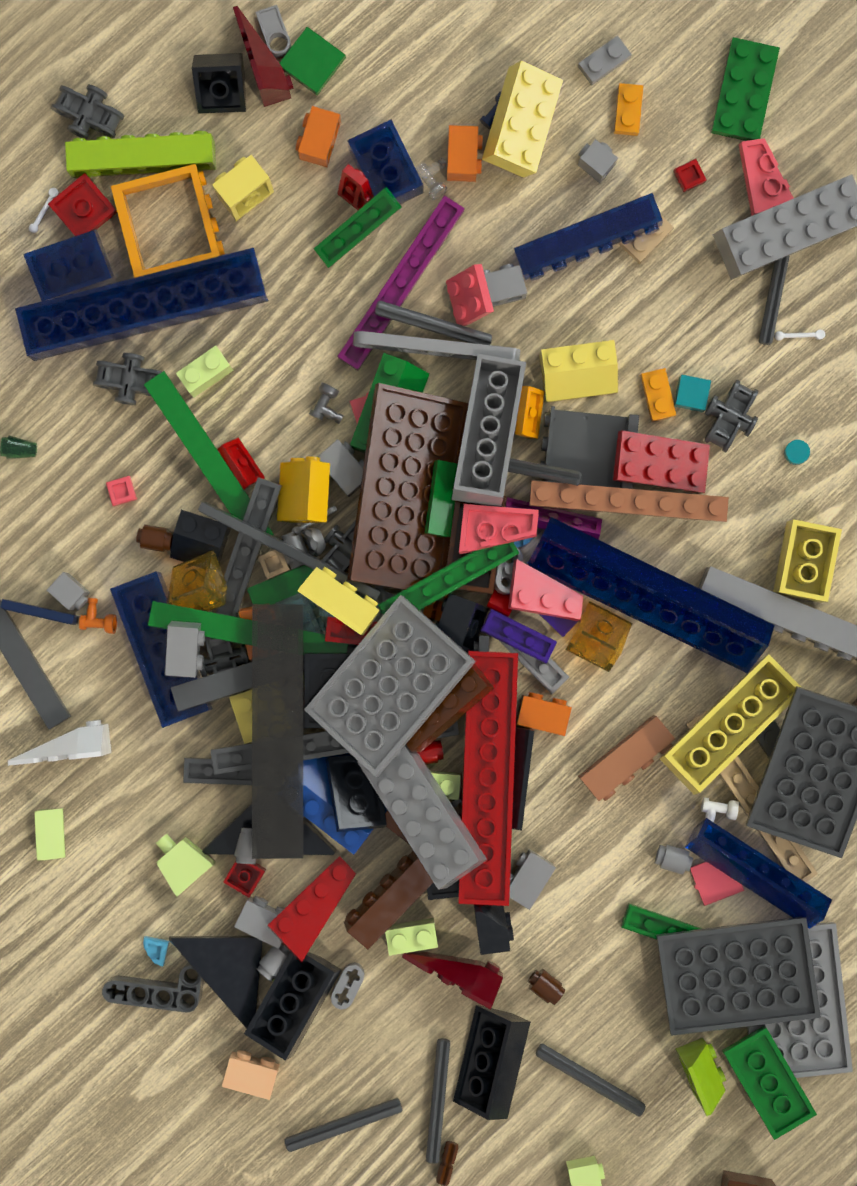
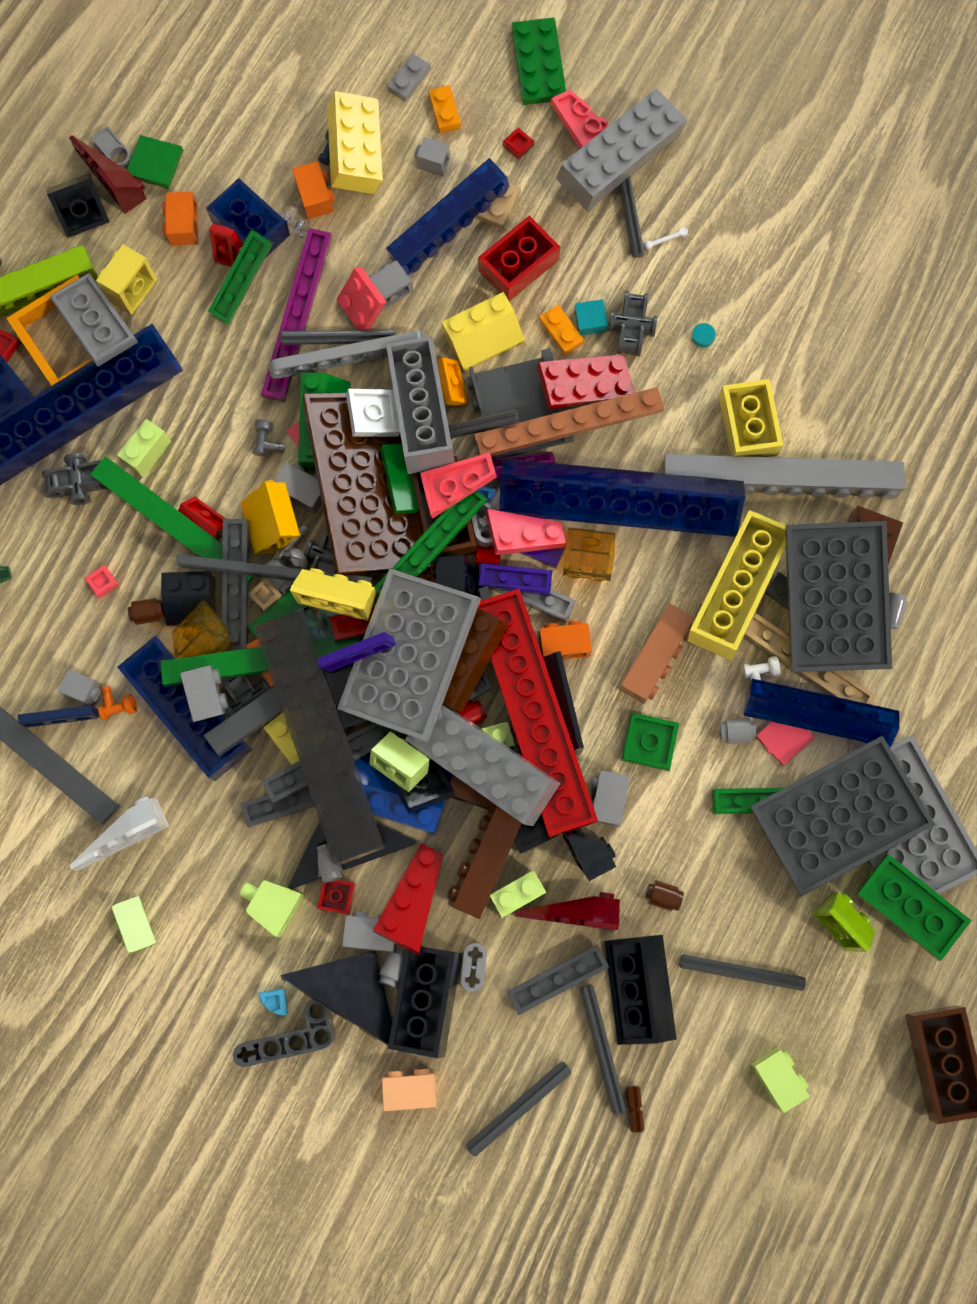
camera: 15 degrees left, 10 degrees down
(196, 221) = (93, 319): none -> light grey tile
(340, 666) = (356, 652): none -> dark purple tile
(345, 780) = (399, 761): none -> yellowish green brick
(420, 1025) = (557, 979): none -> dark grey plate
(440, 423) = (373, 412): none -> white plate
(587, 838) = (650, 742): none -> green tile
(643, 306) = (519, 258): none -> red brick

